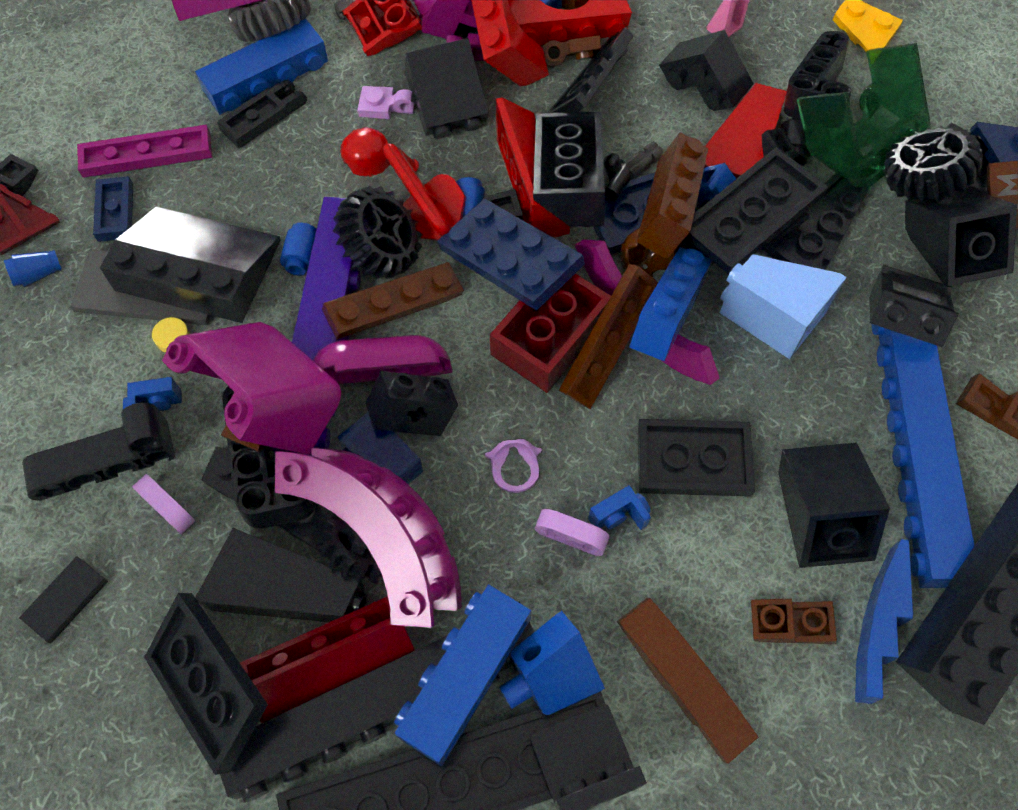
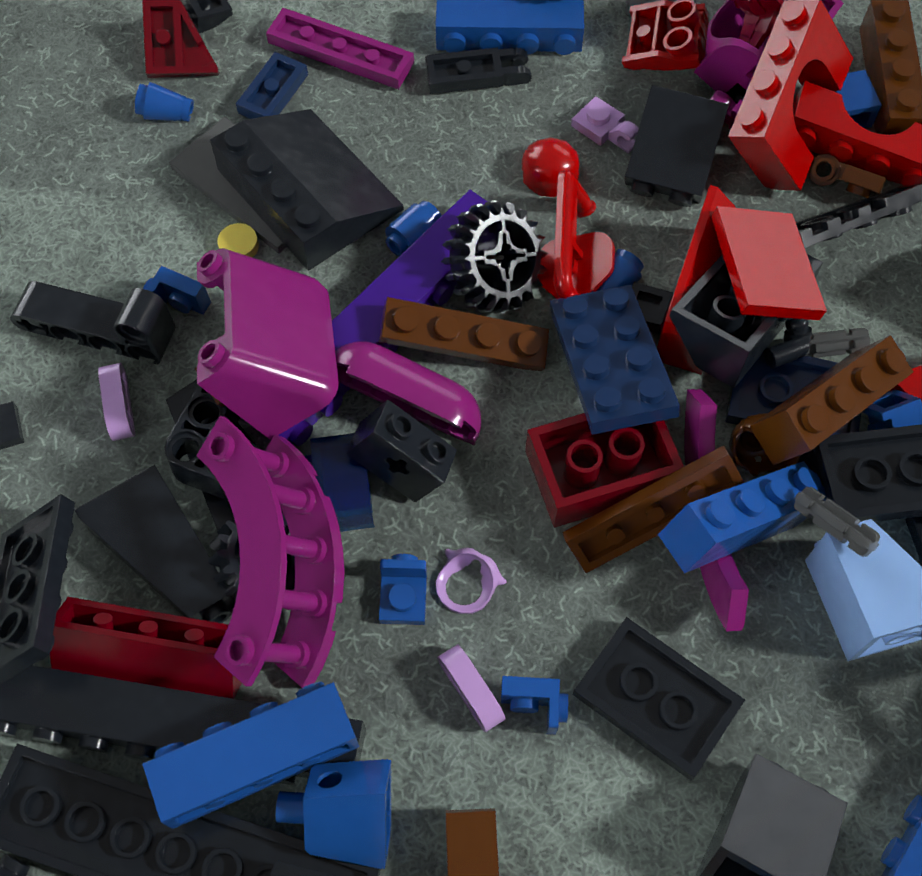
camera: 35 degrees right, 0 degrees up
(477, 499) = (403, 590): none -> blue bracket
(571, 129) = (768, 264): none -> tile
(735, 267) = (837, 521): none -> dark grey axle

